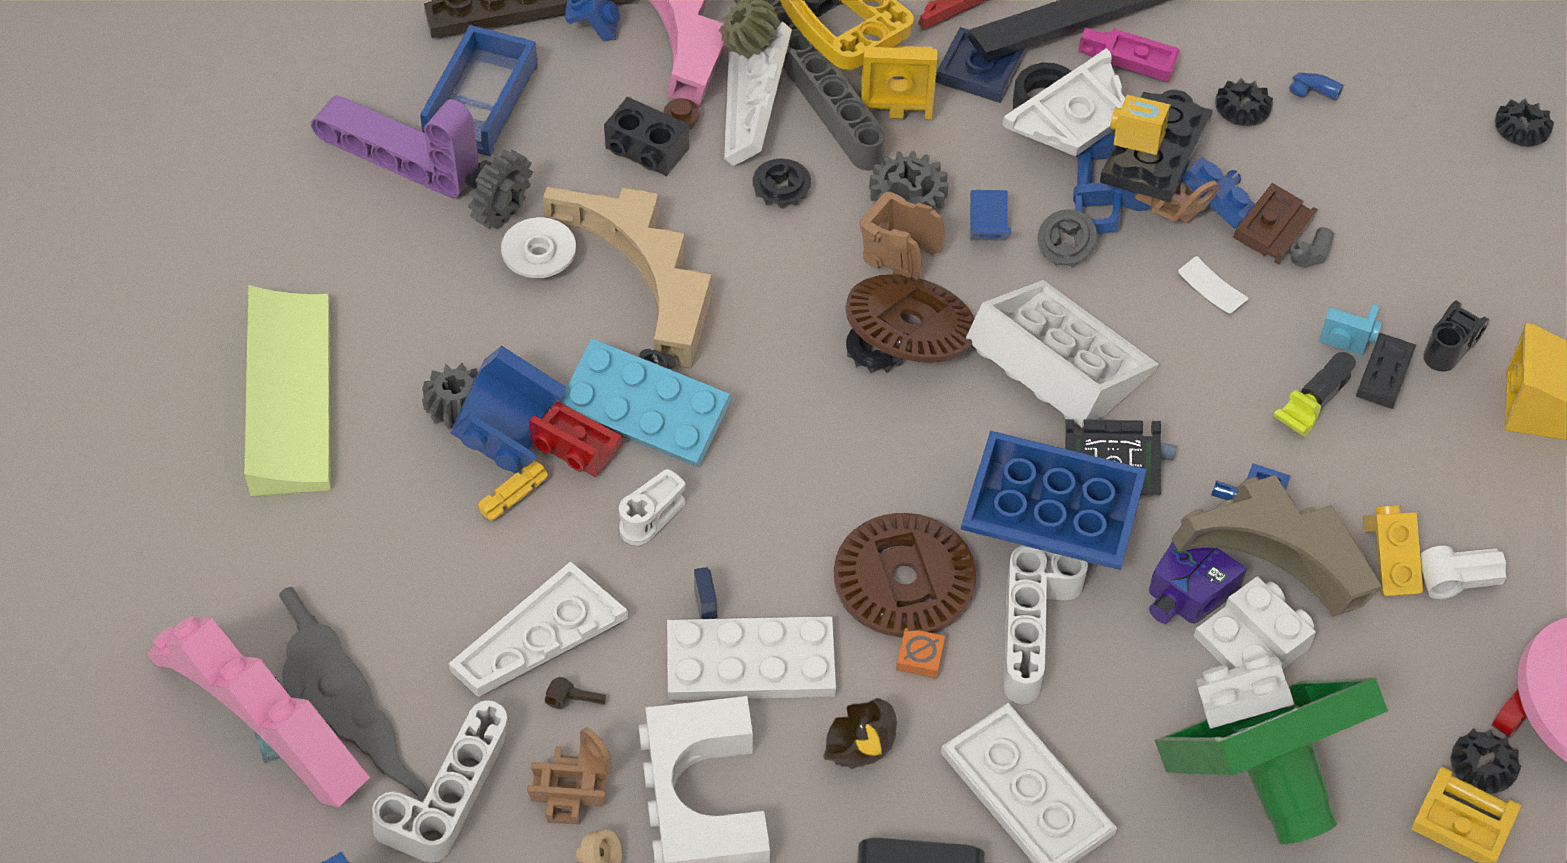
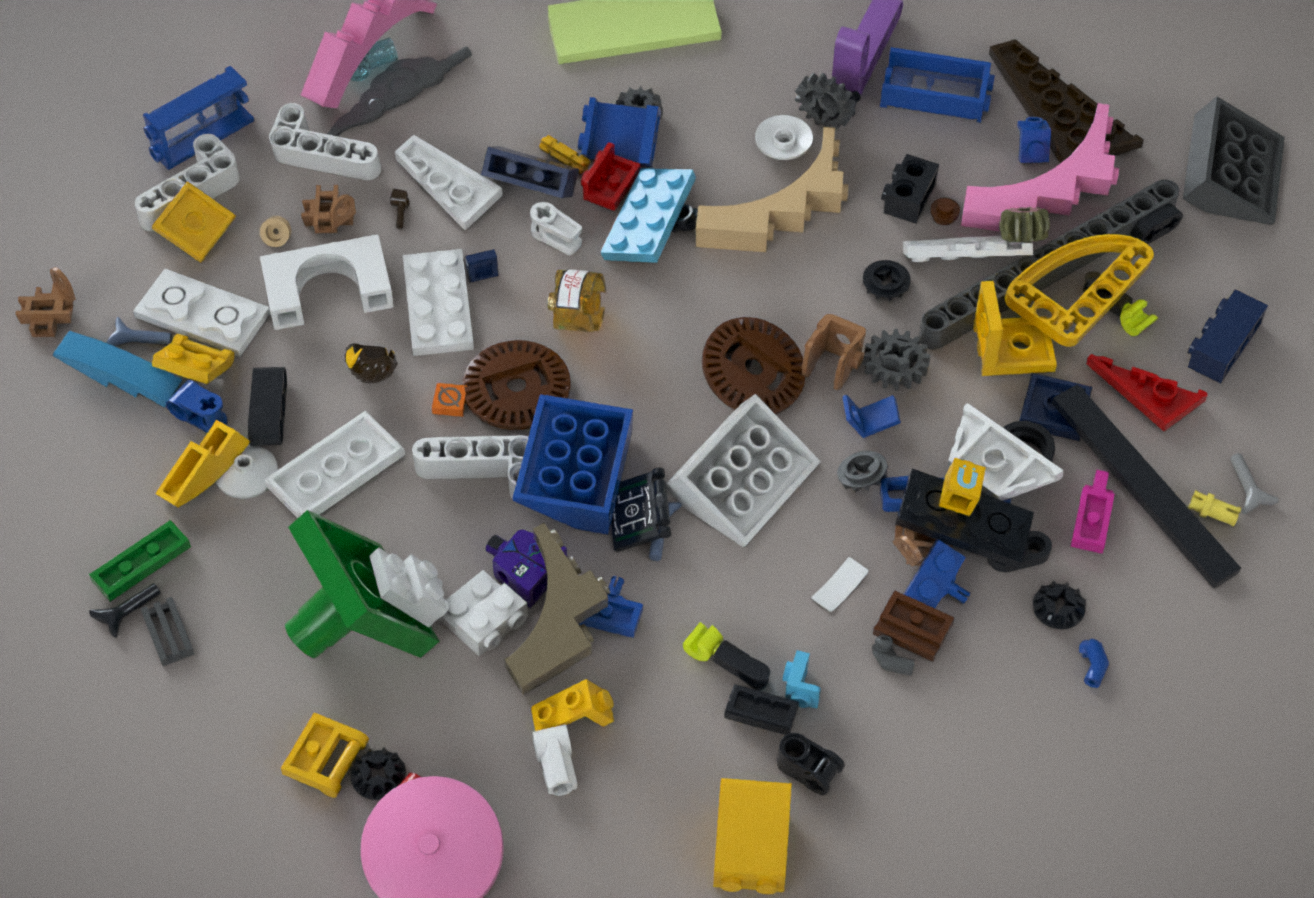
camera: 85 degrees right, 0 degrees up
(553, 523) = (530, 172): none -> dark blue brick
(793, 483) = (577, 300): none -> clear yellow brick
(1512, 127) = (1082, 851): black gear -> none

